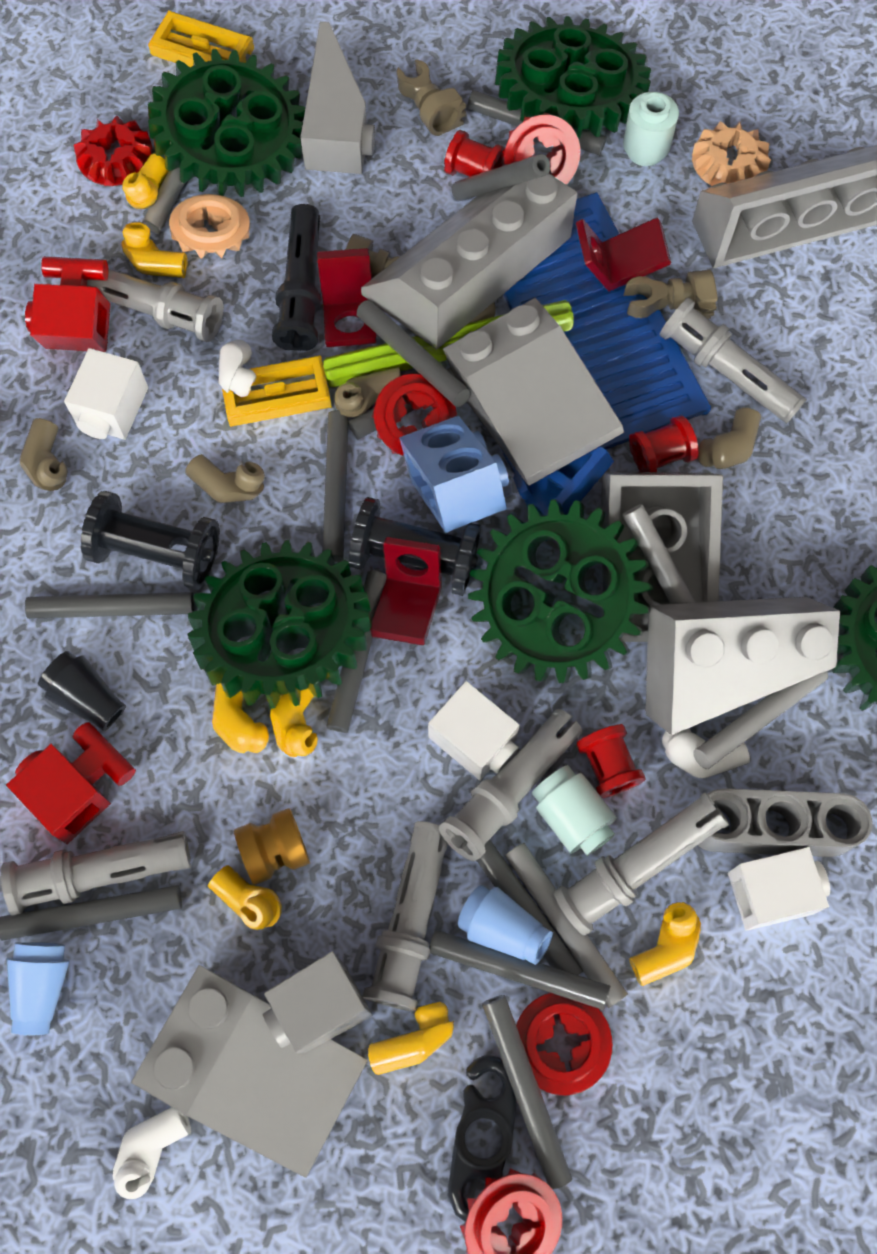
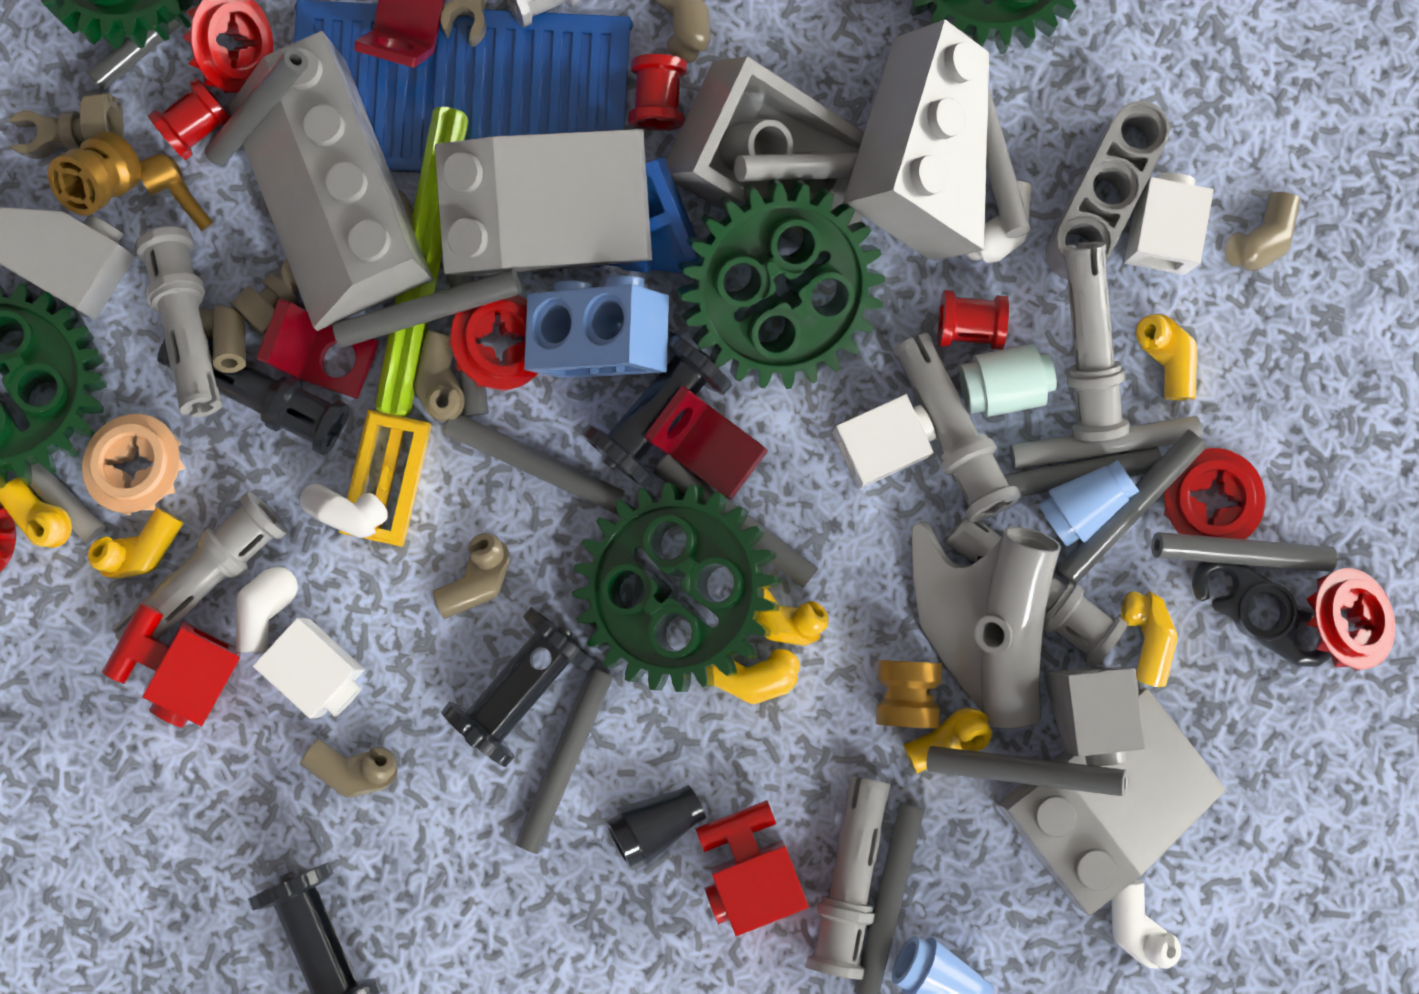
camera: 70 degrees left, 15 degrees up
(144, 342) = (260, 602): none -> white arm
(240, 969) = (1027, 771): none -> dark grey piece
(329, 237) = (227, 330): none -> dark tan arm
(341, 197) = (177, 296): none -> light grey pin
(364, 885) = (989, 618): none -> light grey pin
(400, 110) = (88, 181): none -> pearl gold wheel
(429, 165) = (163, 173): none -> pearl gold hand
(813, 988) = (1268, 241): none -> dark tan arm

